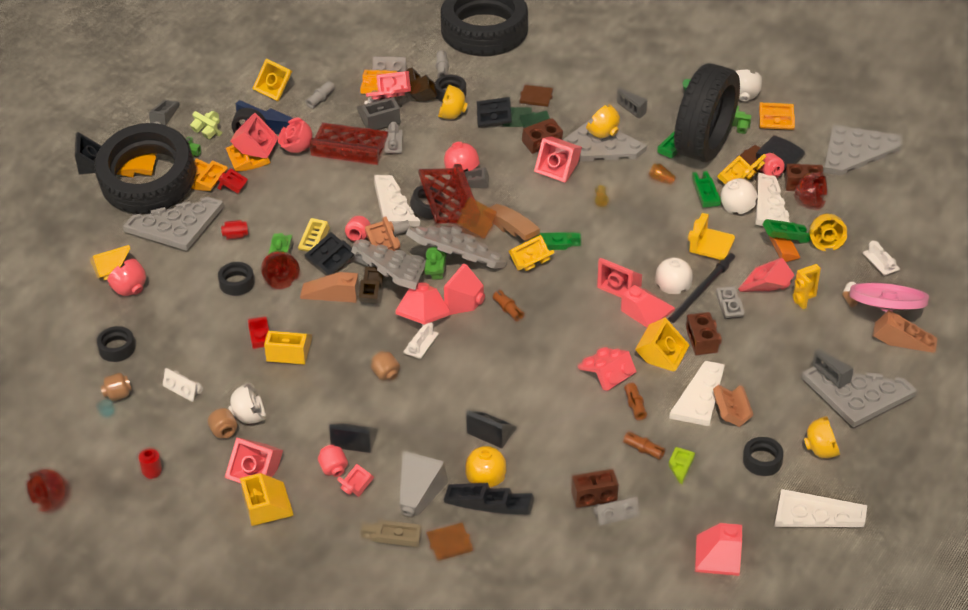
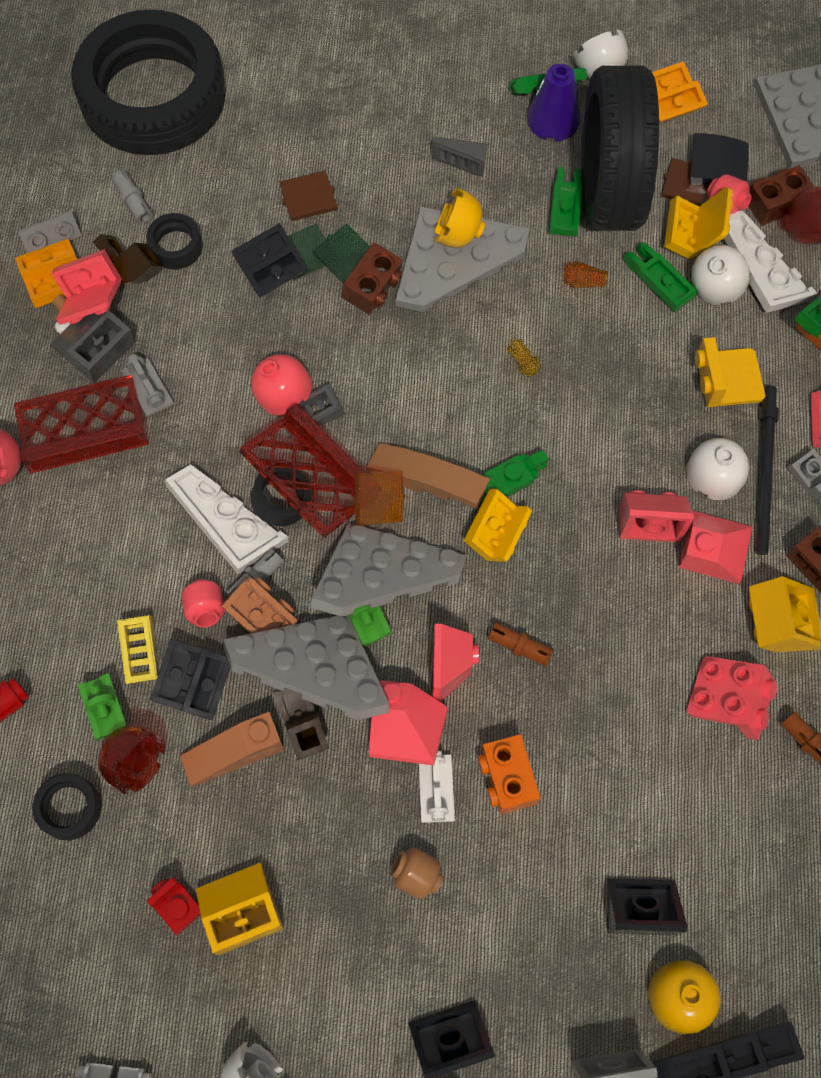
camera: 30 degrees left, 25 degrees up
(452, 103) = (199, 274): yellow cylinder -> none
(461, 349) = (509, 775): none -> orange brick
(557, 158) = (424, 316): coral slope -> none

